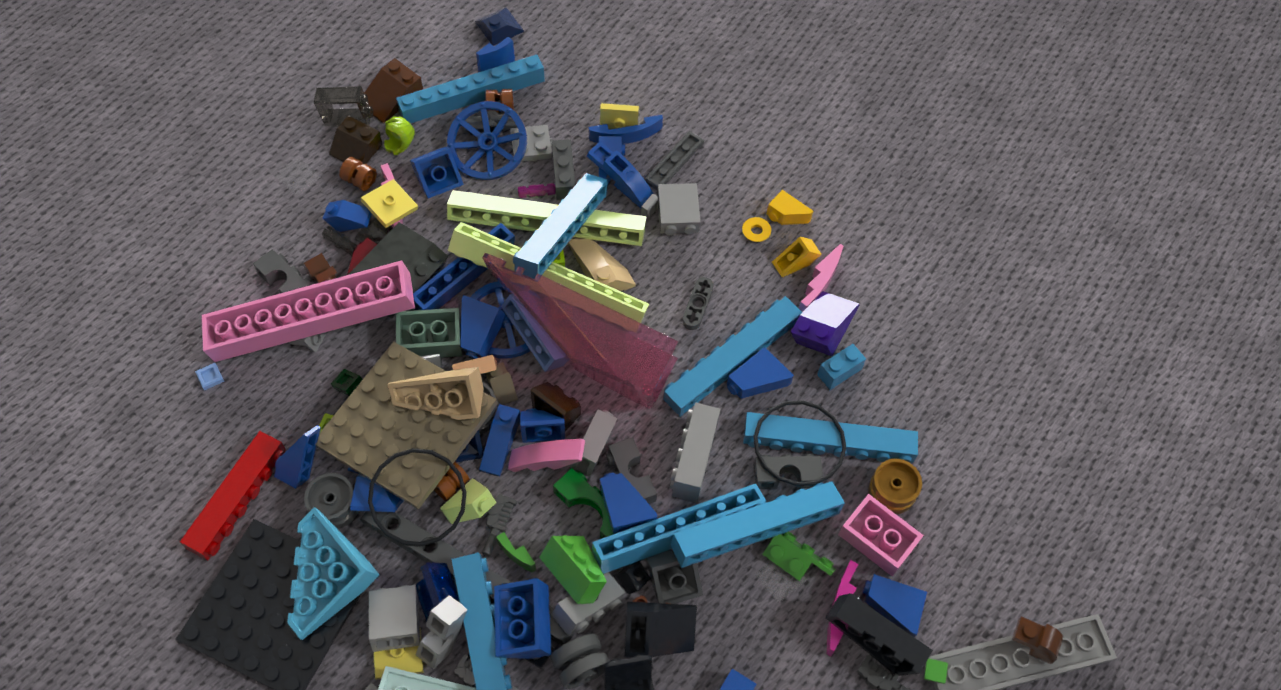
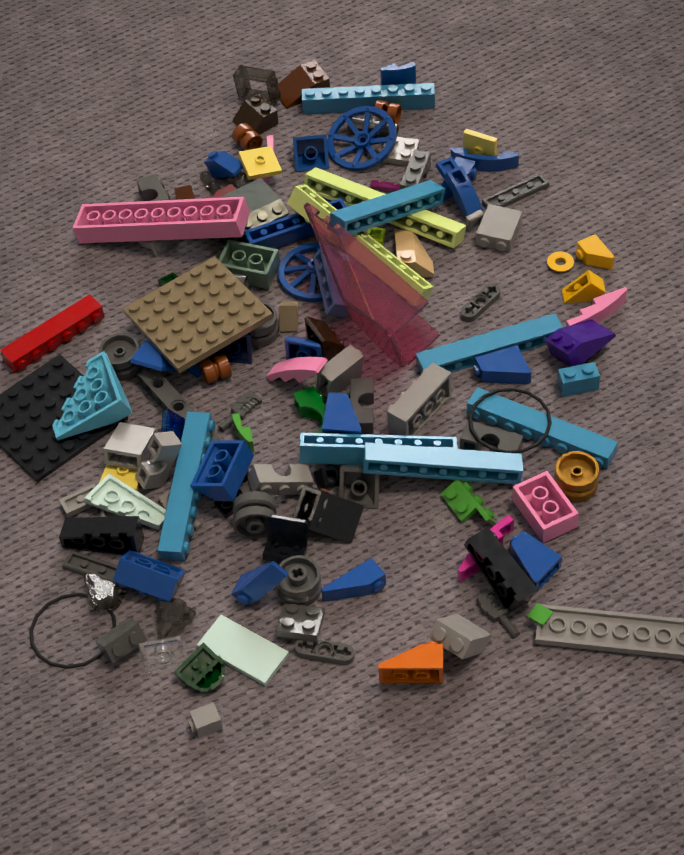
camera: 30 degrees right, 10 degrees down
(209, 376) = (71, 251): light blue tile -> none
(296, 463) = (109, 317): blue slope -> none
(400, 135) = (295, 118): lime hair -> none
(414, 543) = (214, 380): black piece -> none
(447, 393) = (235, 297): tan wedge -> none
(477, 502) = (222, 388): yellowish green slope -> none
(479, 326) = (288, 268): blue slope -> none
(485, 364) = (274, 295): light nougat slope -> none
(499, 26) = (418, 54): dark blue slope -> none
(500, 439) = (268, 353): blue slope -> none
(574, 567) = (278, 446): bright green wedge -> none
(1043, 640) = (641, 616): reddish brown brick -> none

